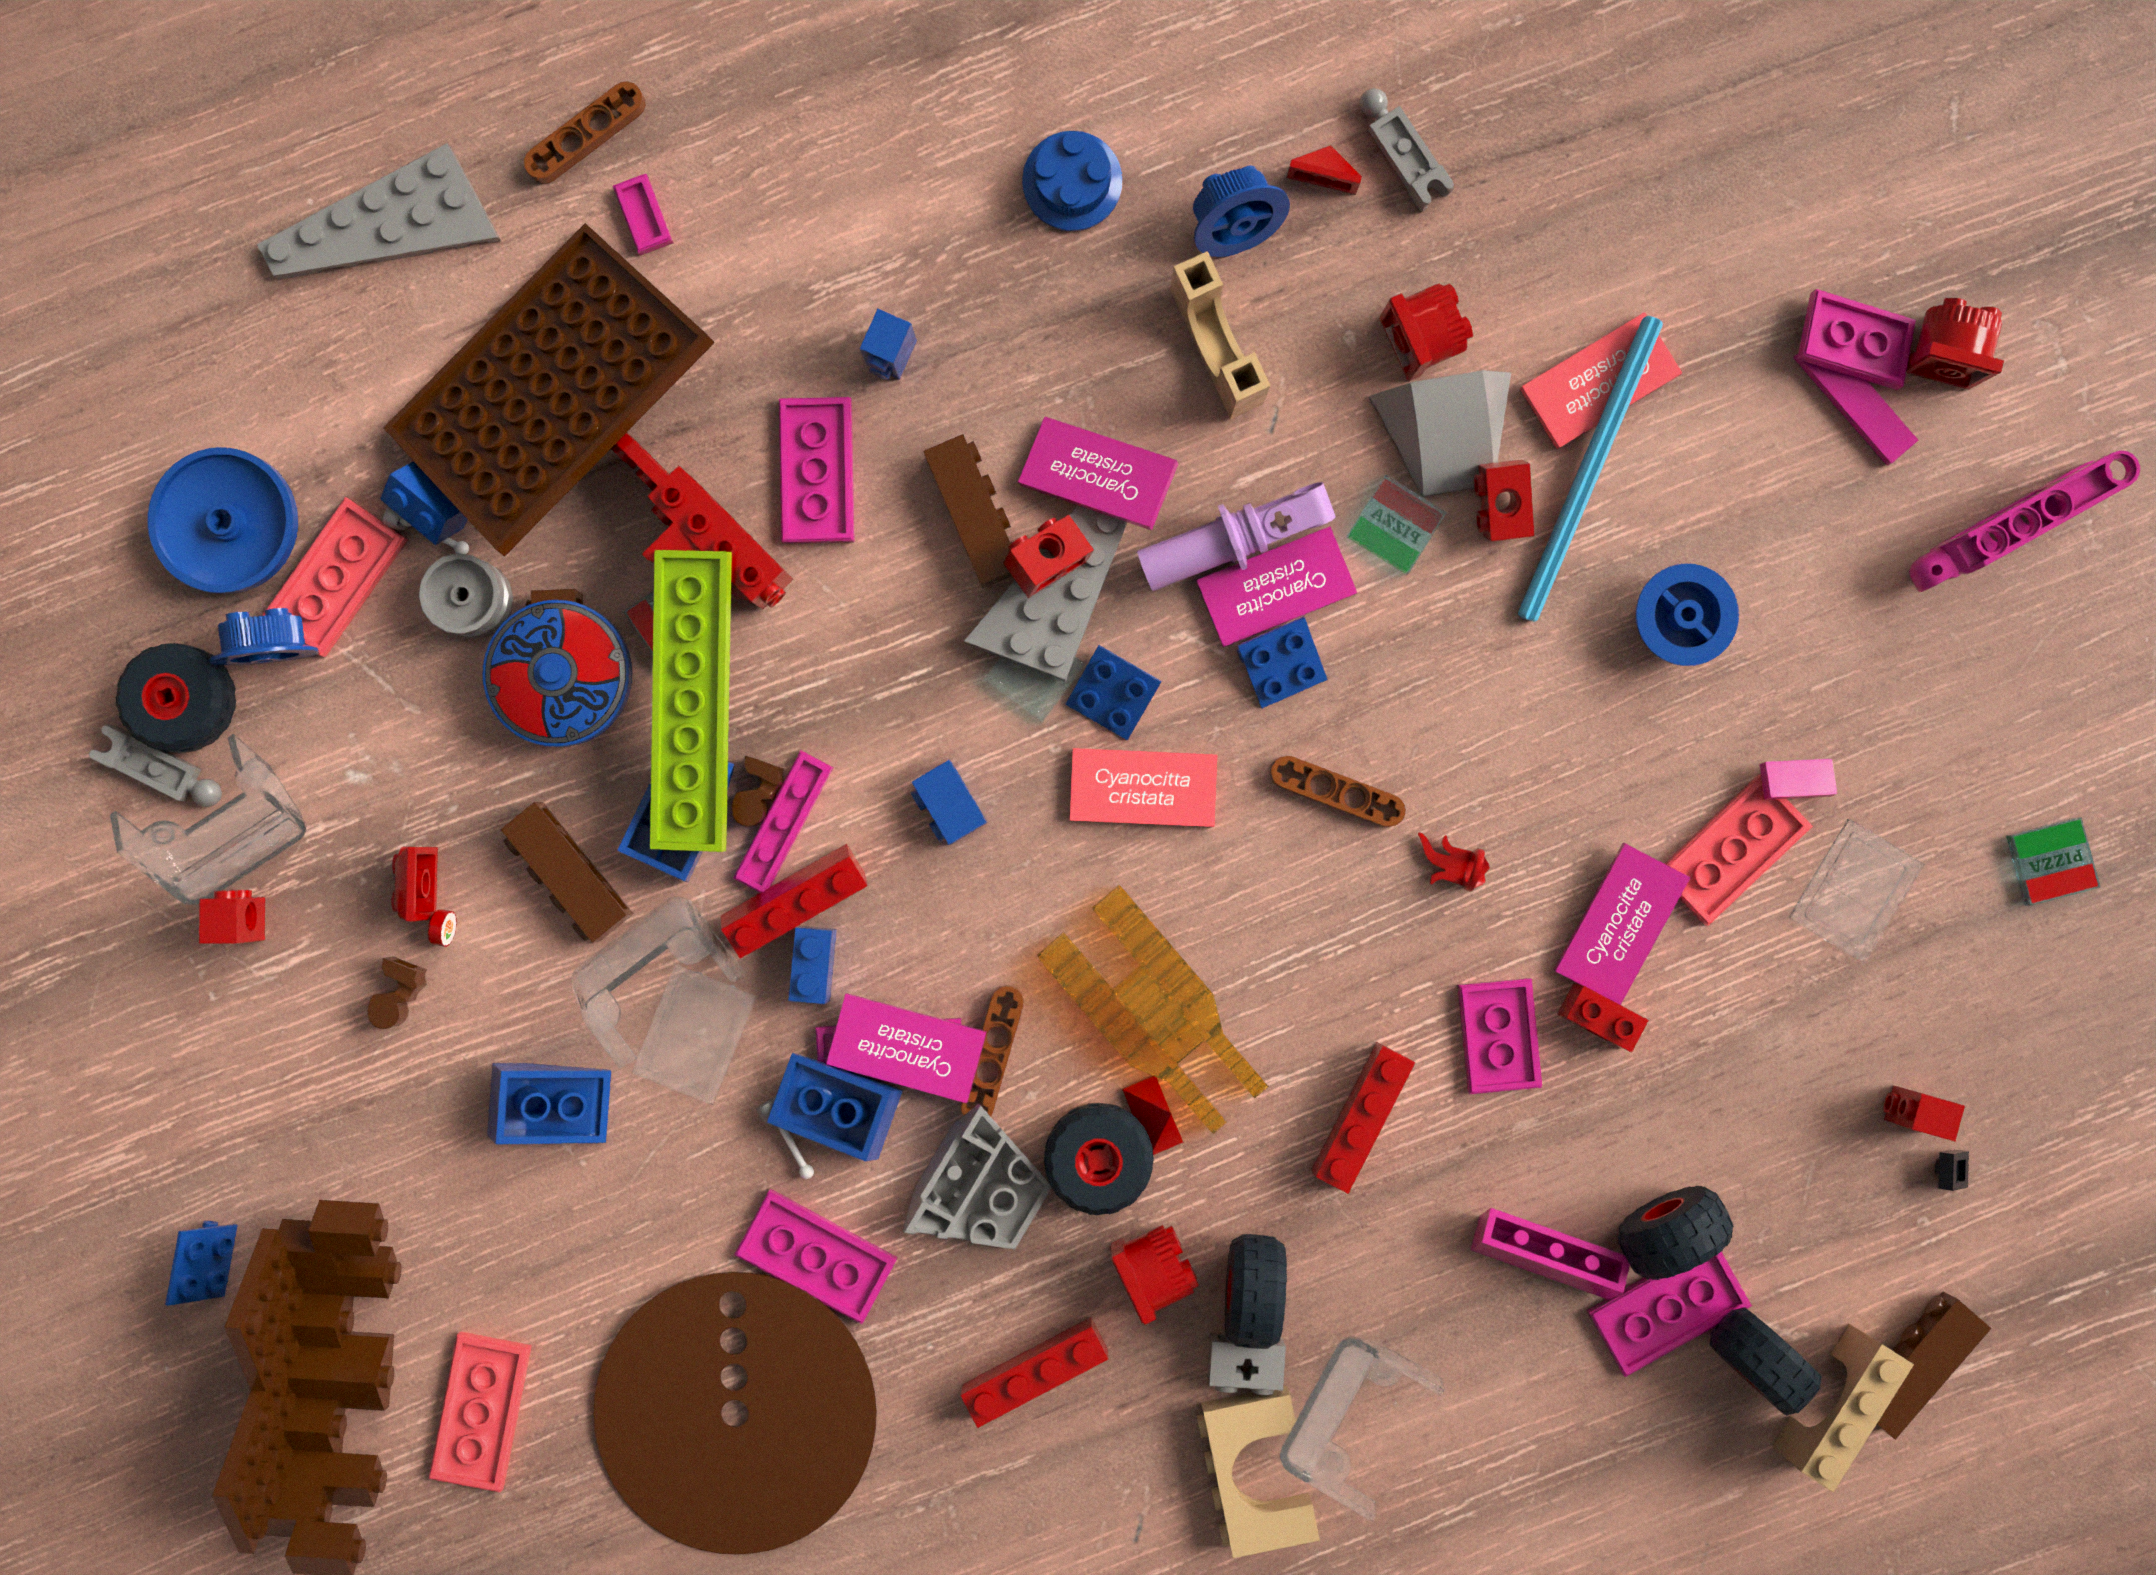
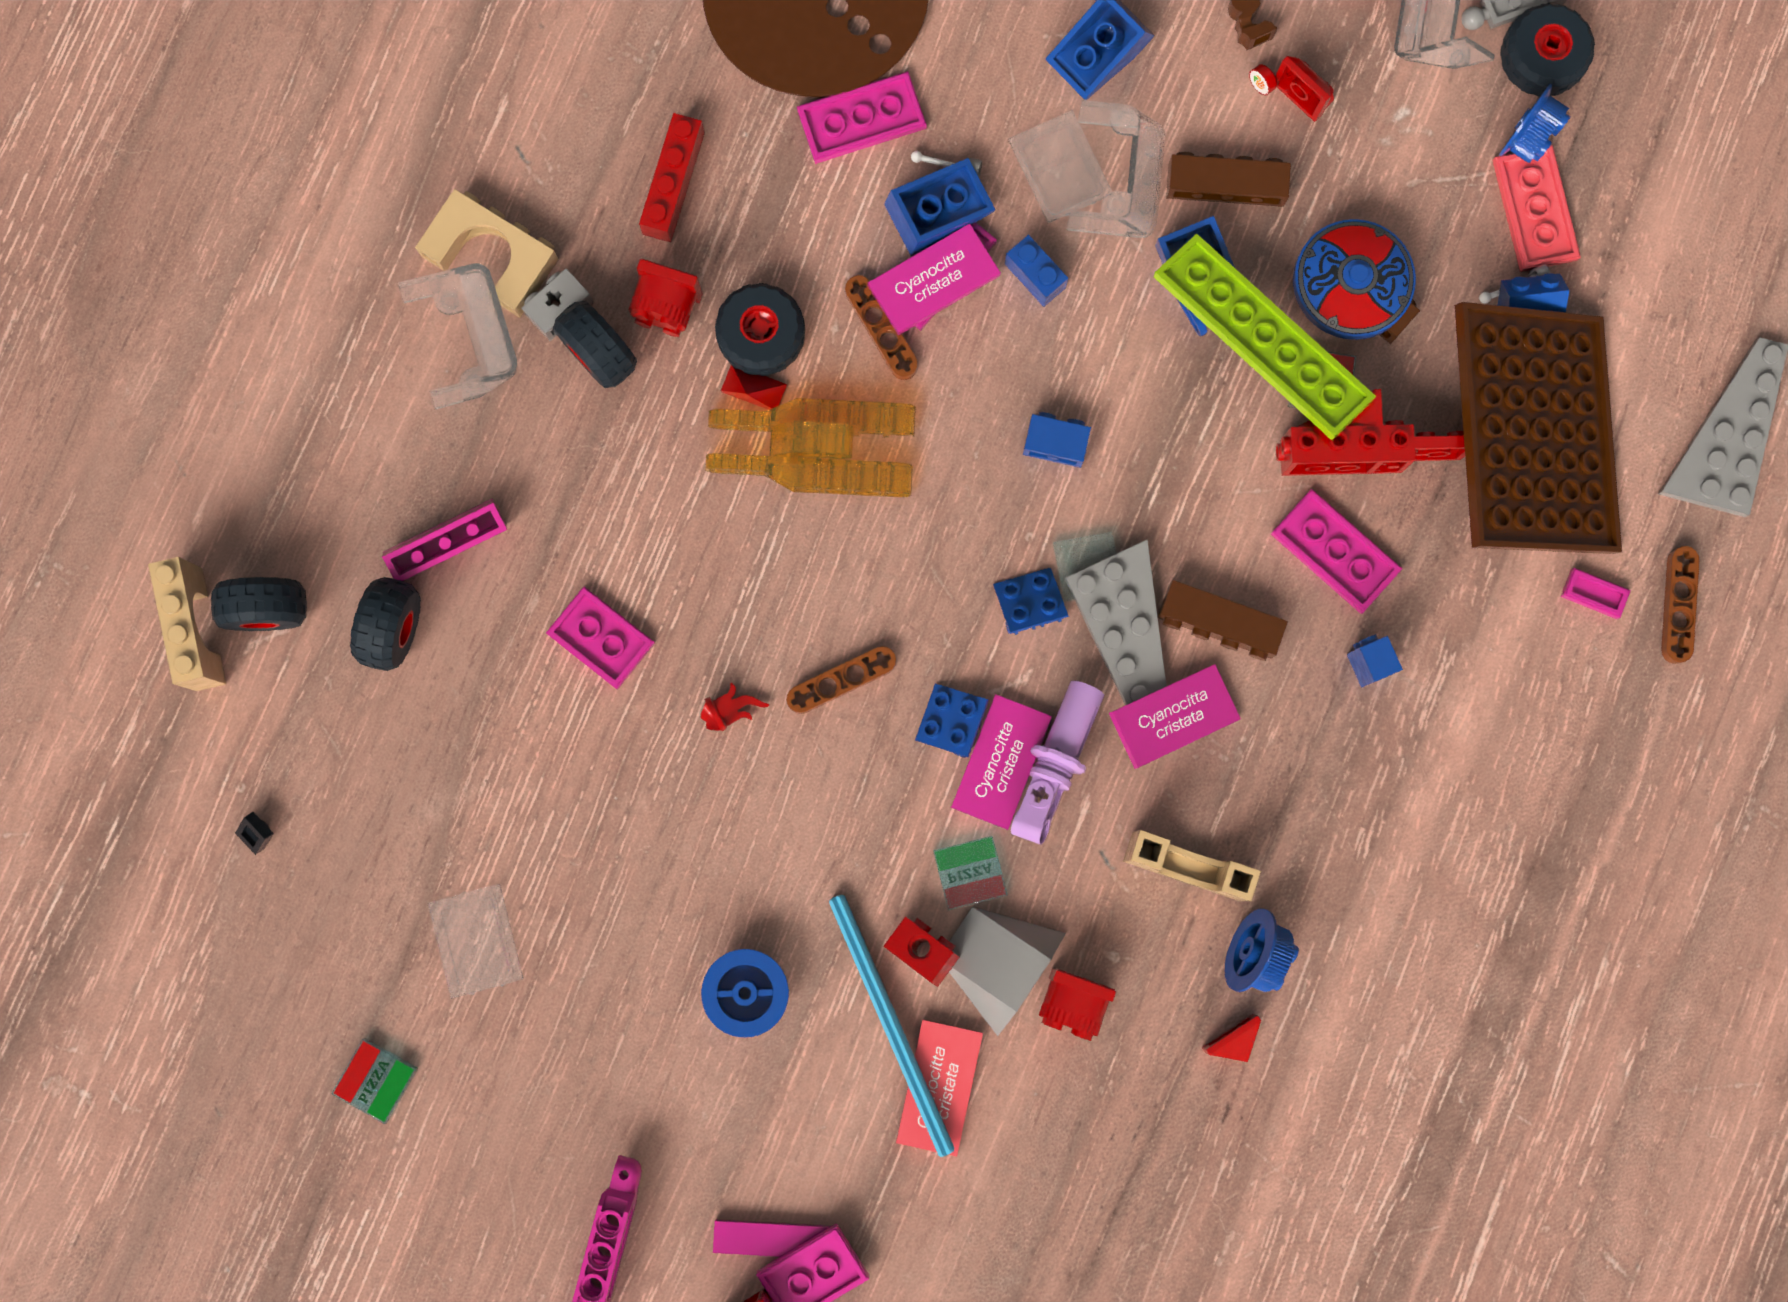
camera: 130 degrees right, 5 degrees down
(222, 520) = (1631, 171): blue dish -> none
(444, 593) = (1452, 270): light grey wheel -> none
(750, 805) = (1165, 323): reddish brown leg -> none
(783, 822) = (1138, 334): dark pink tile -> none
(793, 901) = (1085, 294): red brick -> none
(977, 1186) = (811, 244): light grey wedge -> none
(1035, 571) = (1147, 617): brick -> none
(1072, 180) = (1374, 876): blue piece -> none
(1143, 787) = (955, 565): coral tile -> none
(1362, 1117) = (633, 507): red brick -> none
(1405, 149) = (1203, 1103): light grey plate -> none
(1602, 1017) = (552, 707): red brick -> none
(1621, 923) = (596, 775): dark pink tile -> none
(1666, 1313) = (343, 570): dark pink tile -> none
(1736, 849) = (573, 889): coral tile -> none
(1798, 779) = (578, 968): tile -> none
(1923, 1113) = (307, 844): red brick -> none
(1936, 1348) = (161, 706): reddish brown brick -> none

